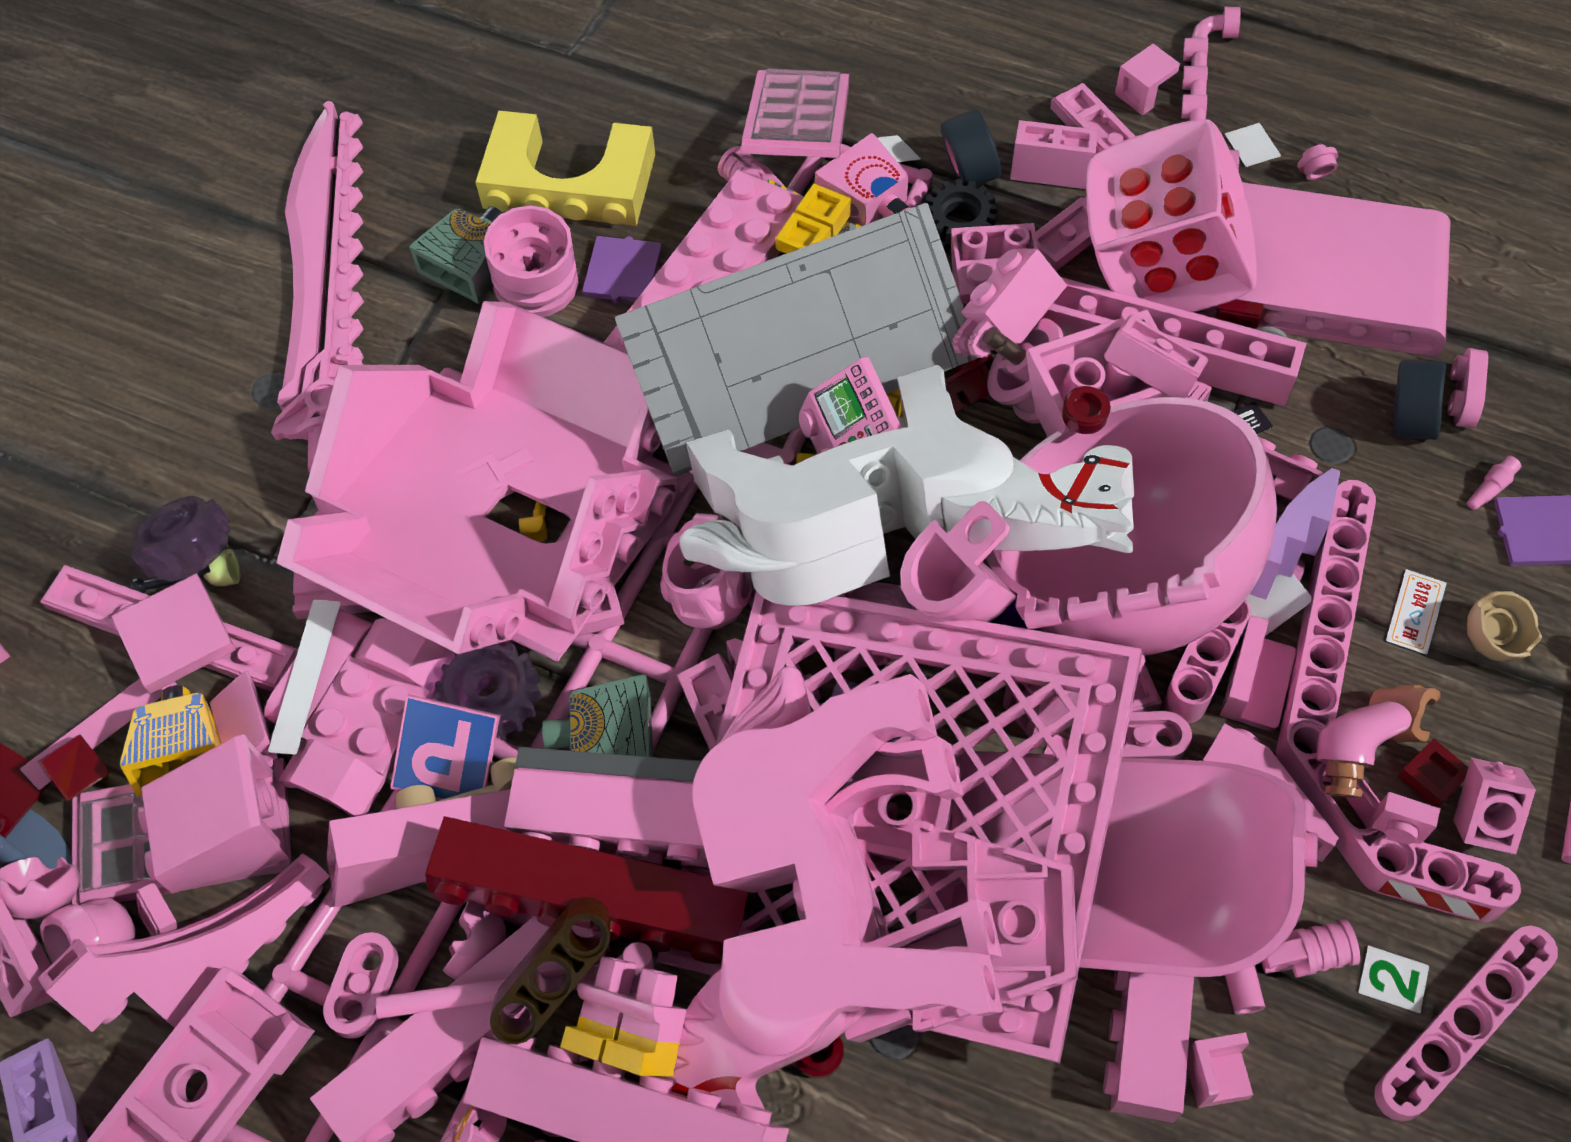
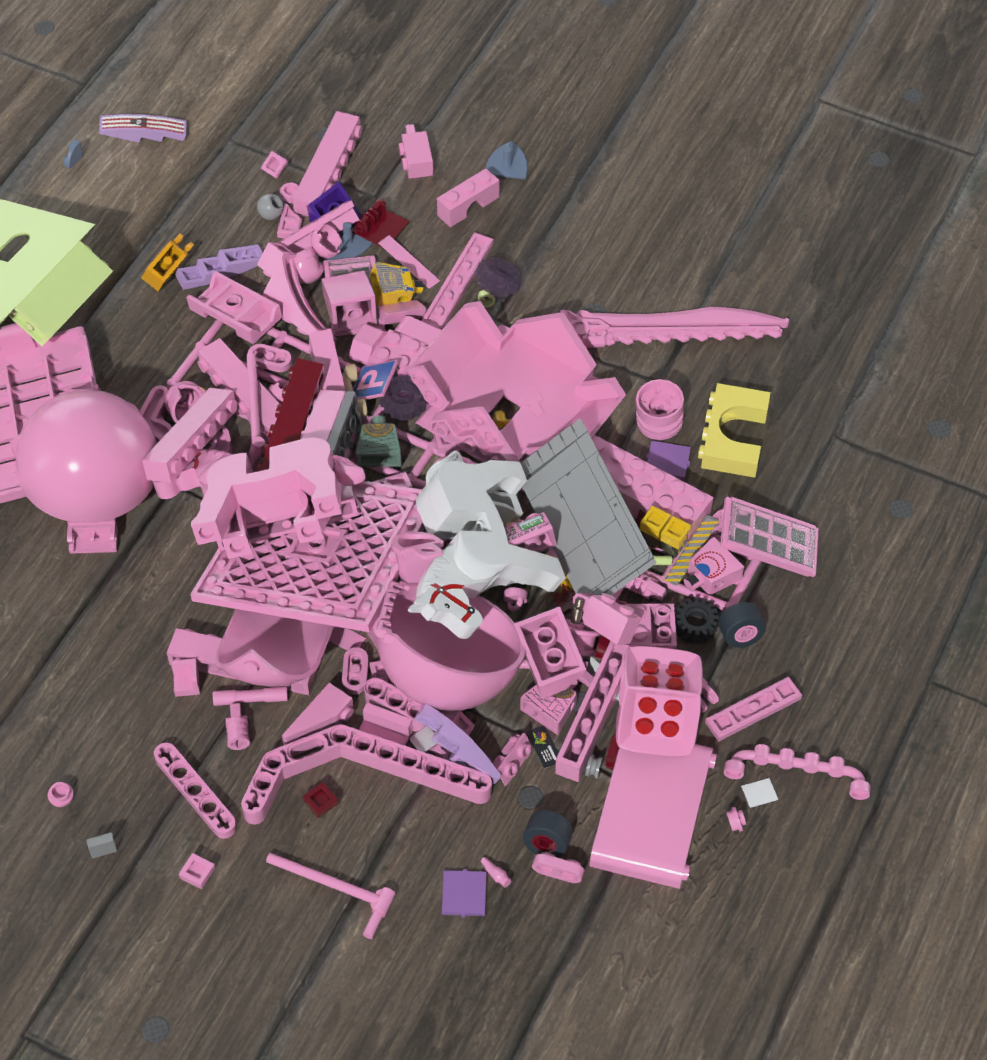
camera: 90 degrees right, 5 degrees down
(73, 767) = (384, 251): dark red slope -> none
(154, 911) = (312, 288): bright pink tile -> none
(173, 633) = (449, 280): bright pink tile -> none
(304, 677) = (410, 326): white sticker -> none
(455, 253) = (684, 378): sand green torso -> none
(545, 994) = (252, 406): dark brown beam -> none
(628, 1028) = (226, 434): bright pink hips -> none
(898, 148) = (752, 591): white sticker -> none
(1029, 906) = (253, 575): bright pink wing -> none
(1053, 154) = (743, 671): bright pink hinge -> none
(1085, 410) = (519, 629): dark red tile -> none
(1142, 75) = (806, 728): bright pink panel -> none
(1155, 358) = (553, 668): bright pink slope -> none
(1353, 738) = (330, 742): piece -> none
(1393, 979) = (221, 766): white sticker -> none
(1405, 819) = (286, 758): bright pink plate -> none
(1416, 612) = (419, 818): white sticker -> none
(1494, 805) = (294, 812): bright pink head -> none
(1503, 626) = (397, 846): tan hair -> none

